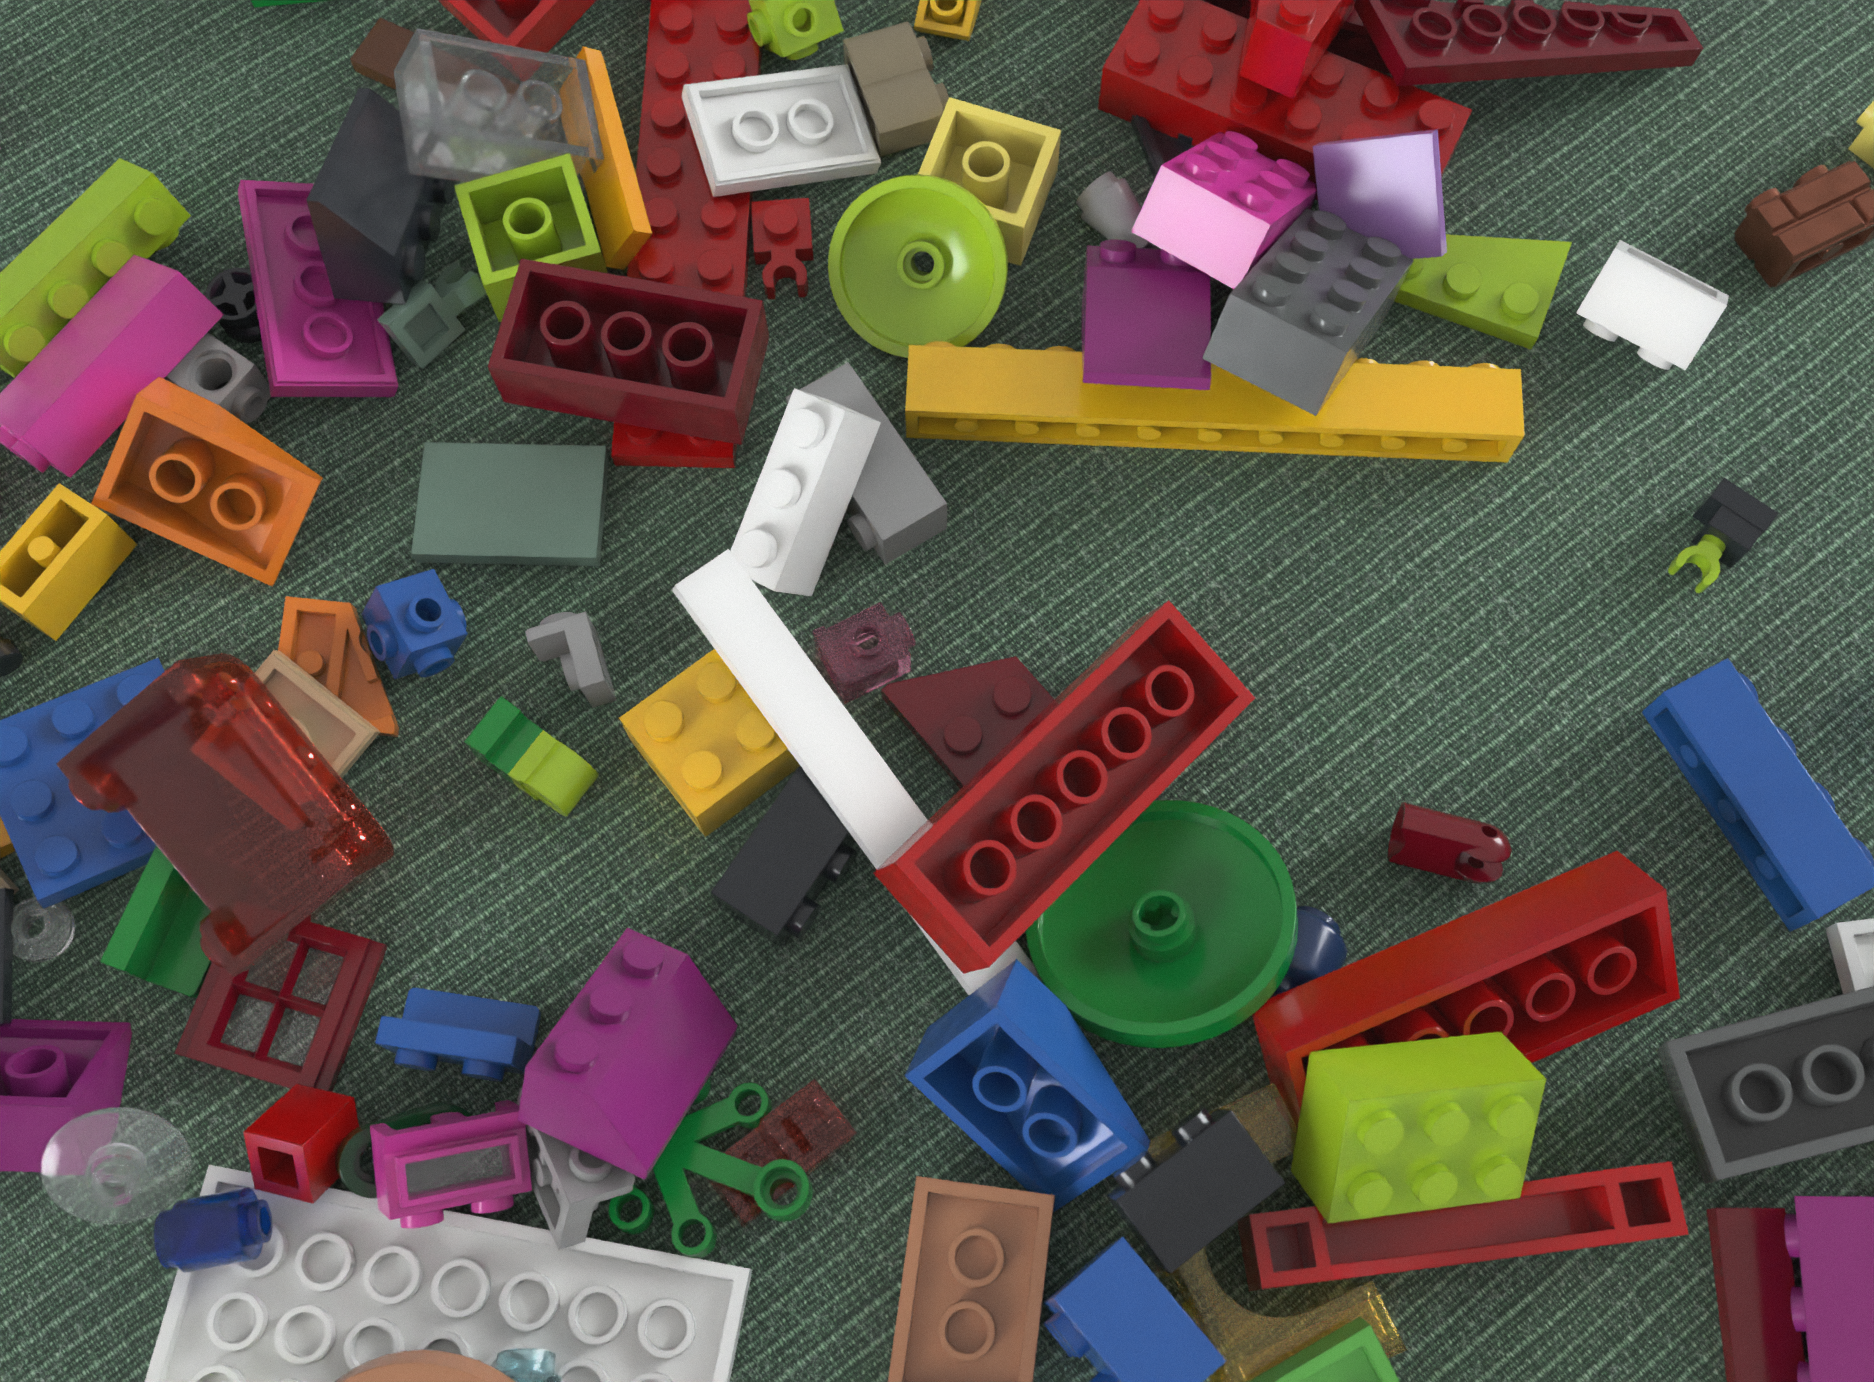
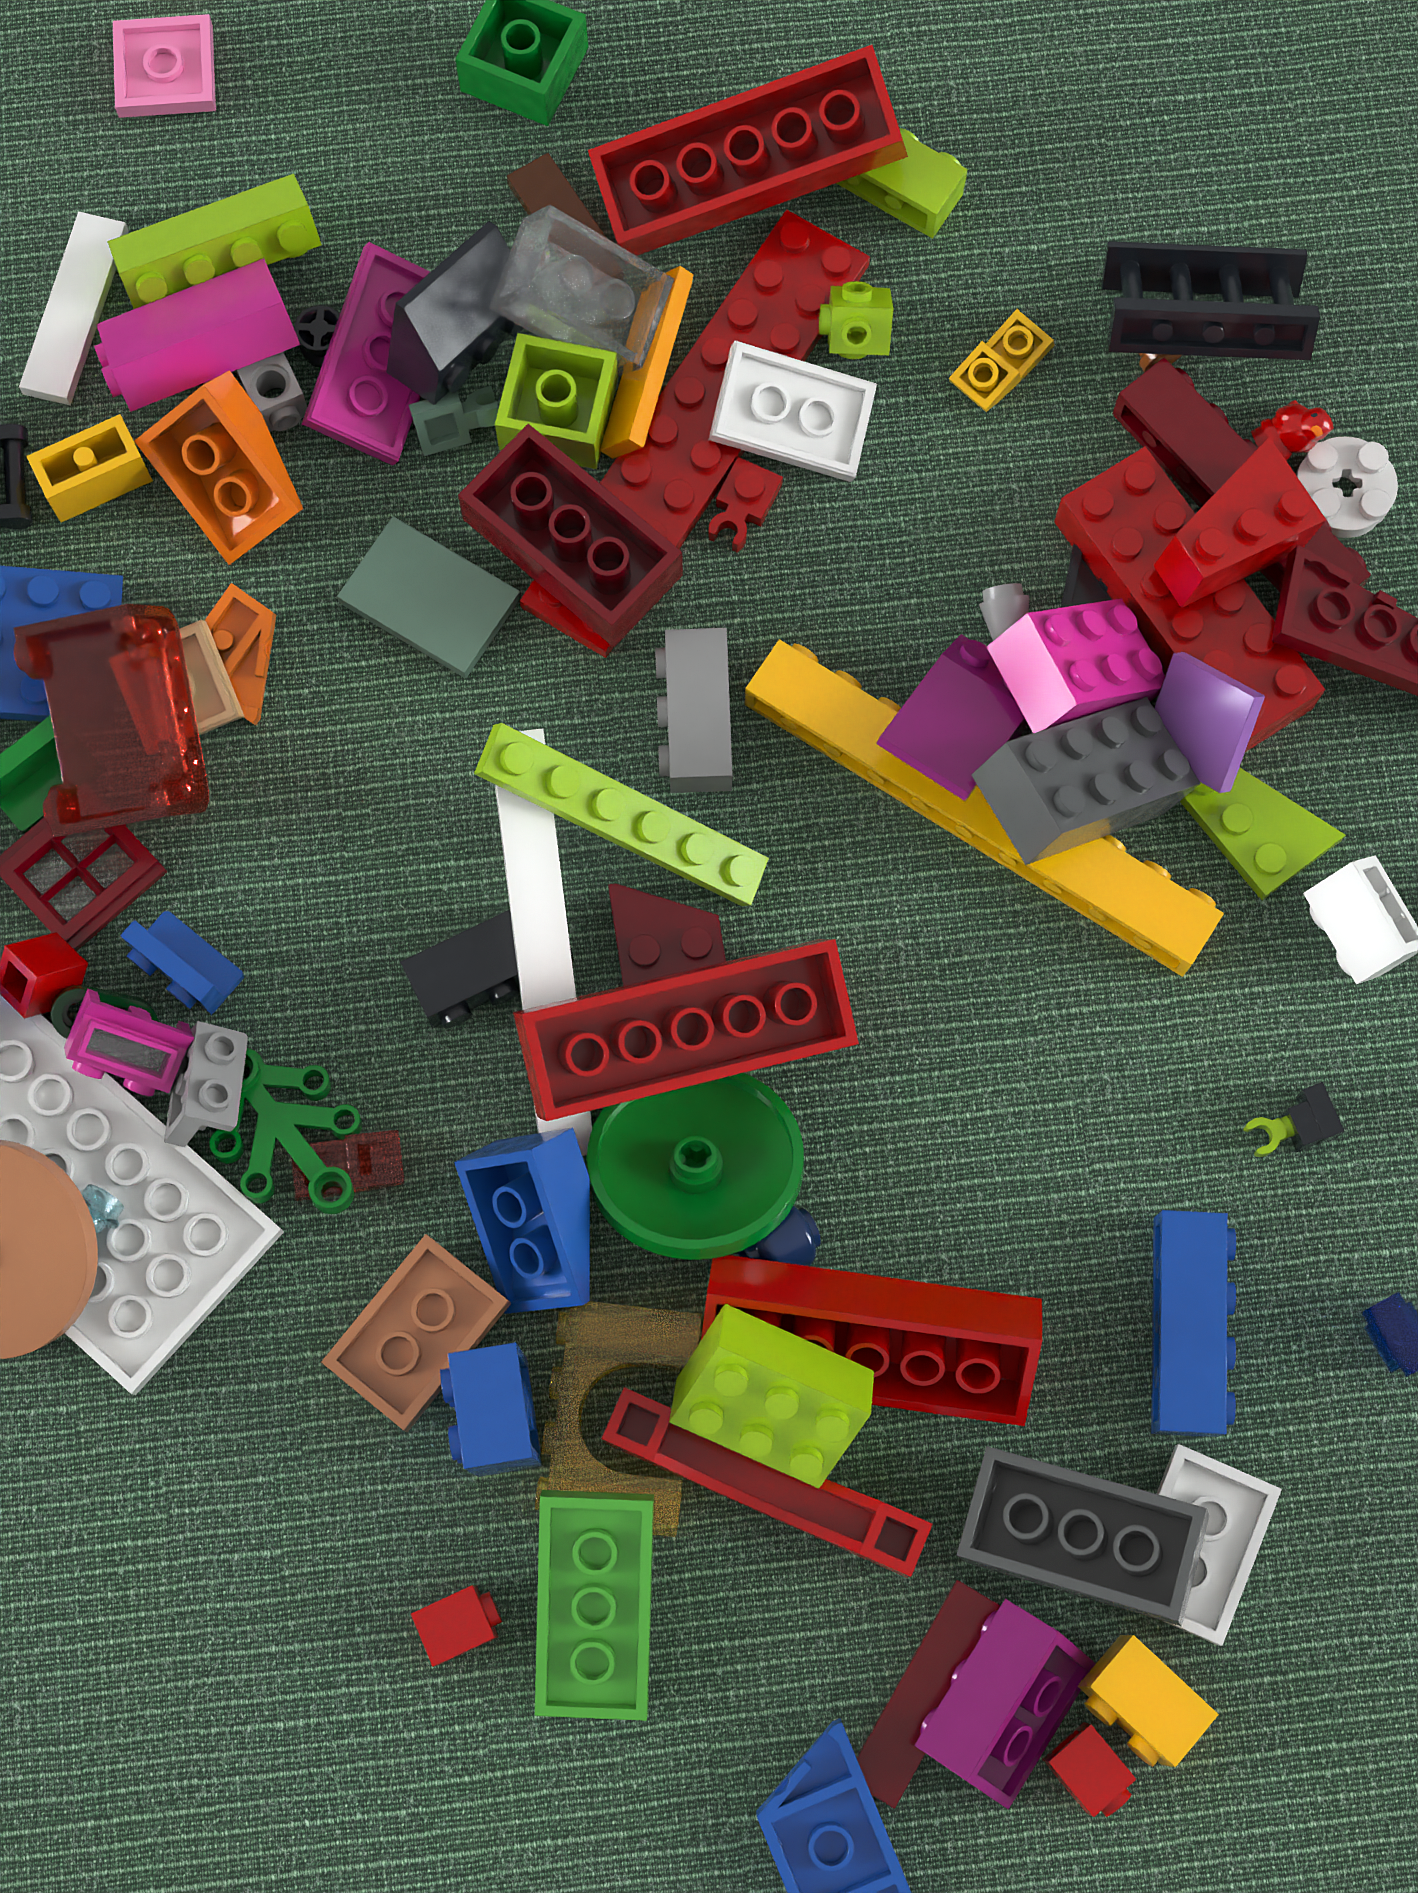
camera: 30 degrees right, 5 degrees up
(414, 625) = (308, 654): blue brick -> none
(531, 758) = (335, 794): leg -> none
(580, 652) = (413, 746): light grey bracket -> none
(628, 1055) = (281, 1040): magenta slope -> none
(708, 742) = (458, 855): yellow brick -> none
(803, 493) = (633, 708): white brick -> none
(855, 599) = (620, 814): none -> lime plate
(863, 670) = (600, 864): clear pink brick -> none
(876, 270) = (795, 584): lime dish -> none
(896, 86) = (901, 423): dark tan brick -> none
(999, 161) = (918, 539): light yellow brick -> none
(1193, 1186) = (593, 1345): black brick -> none
(1447, 844) = (939, 1228): dark red piece -> none

